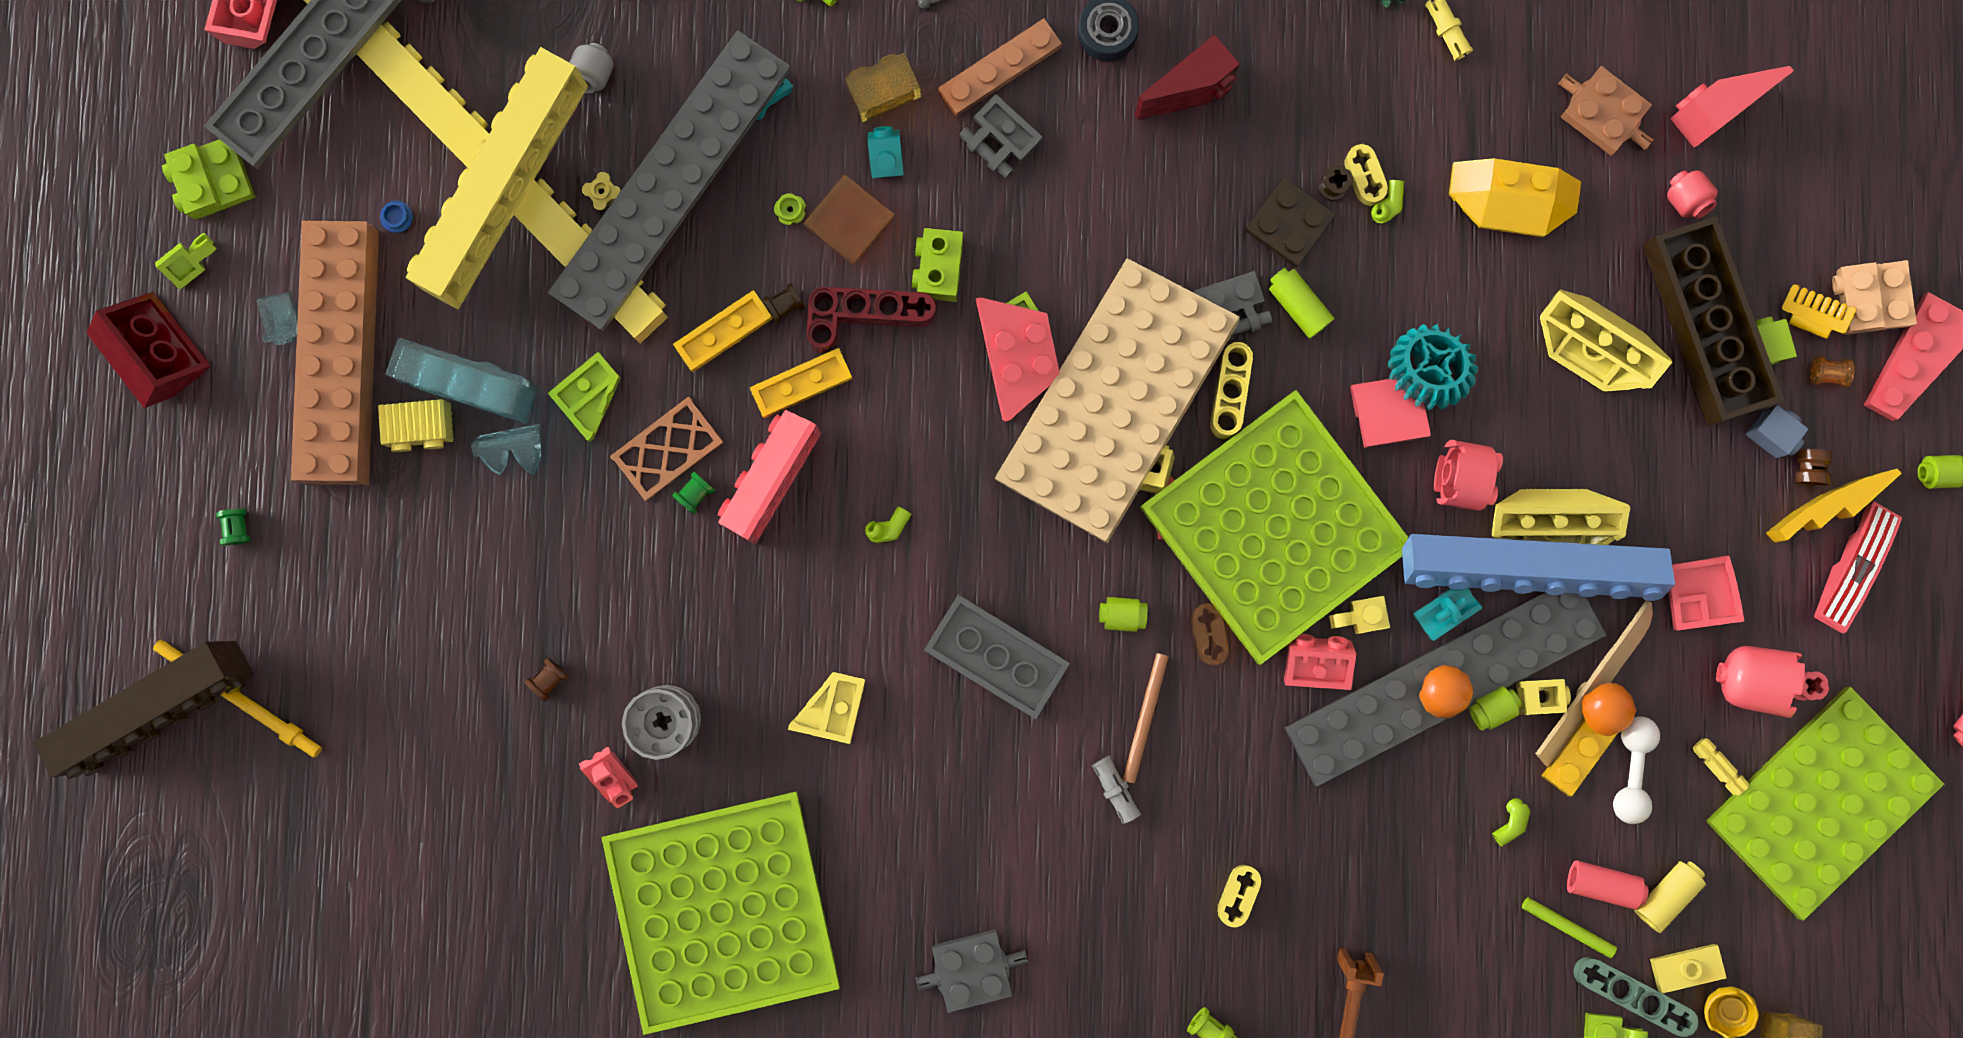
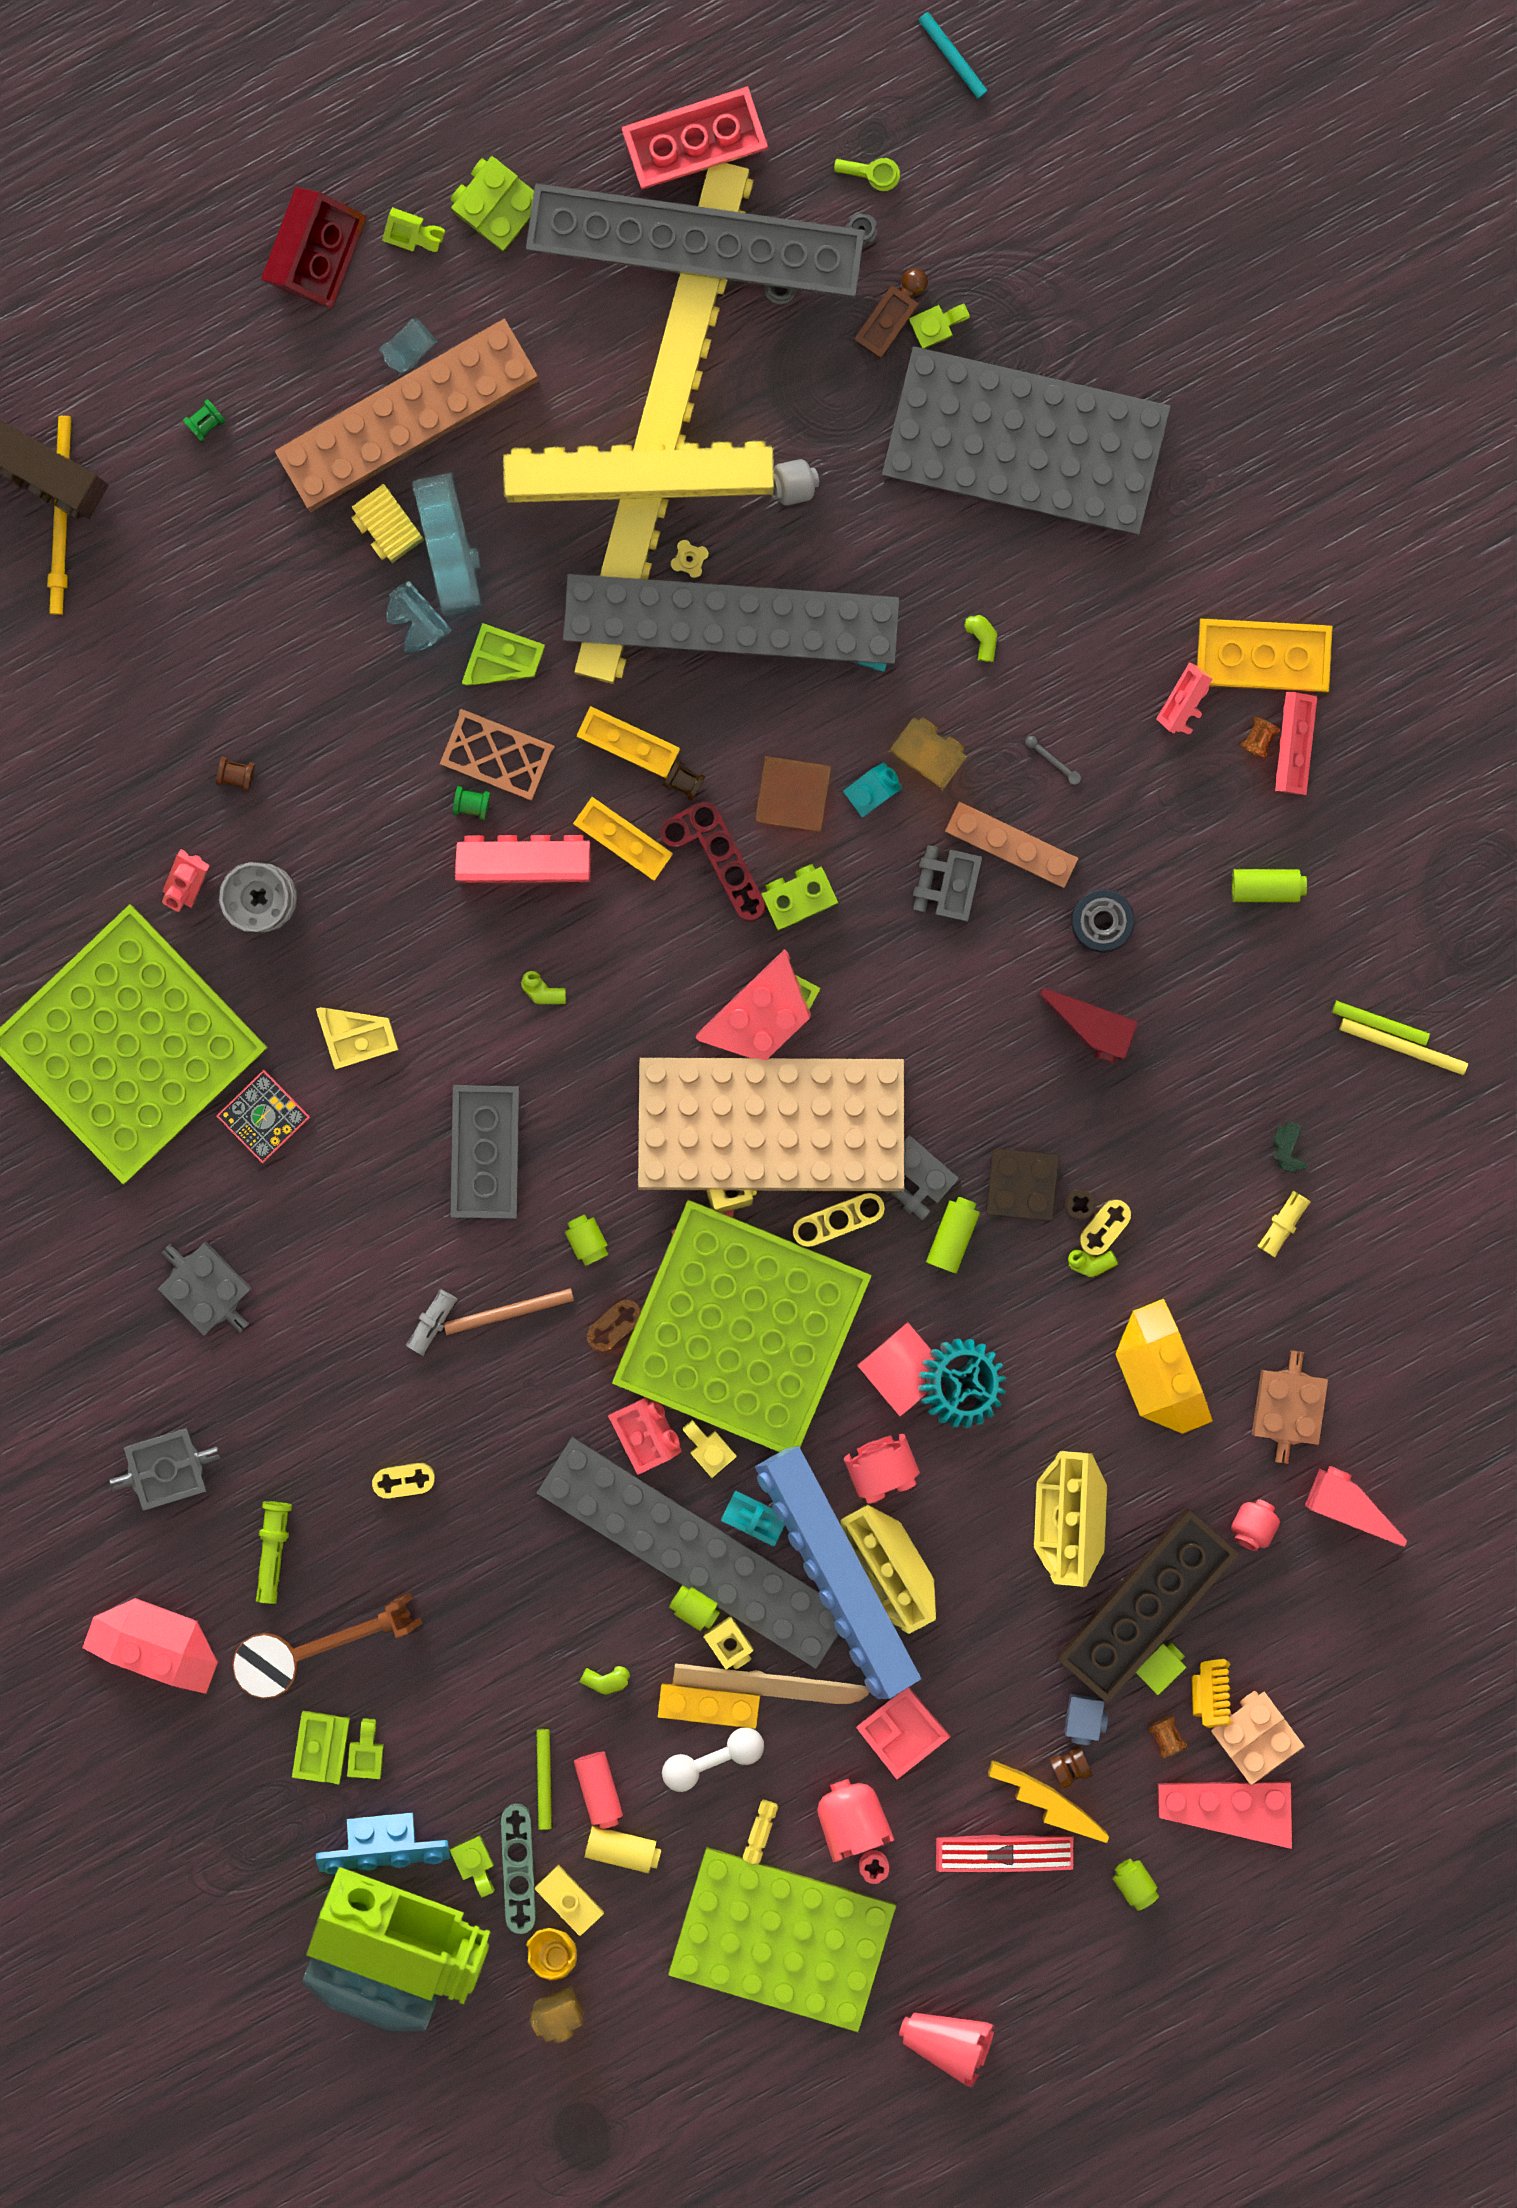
camera: 55 degrees right, 5 degrees up
(396, 216) = (559, 391): blue plate -> none
(786, 201) = (768, 743): lime plate -> none
(853, 830) = (263, 1116): none -> tile
(1446, 691) = (682, 1556): orange hair -> none
(1608, 709) = (750, 1704): orange hair -> none

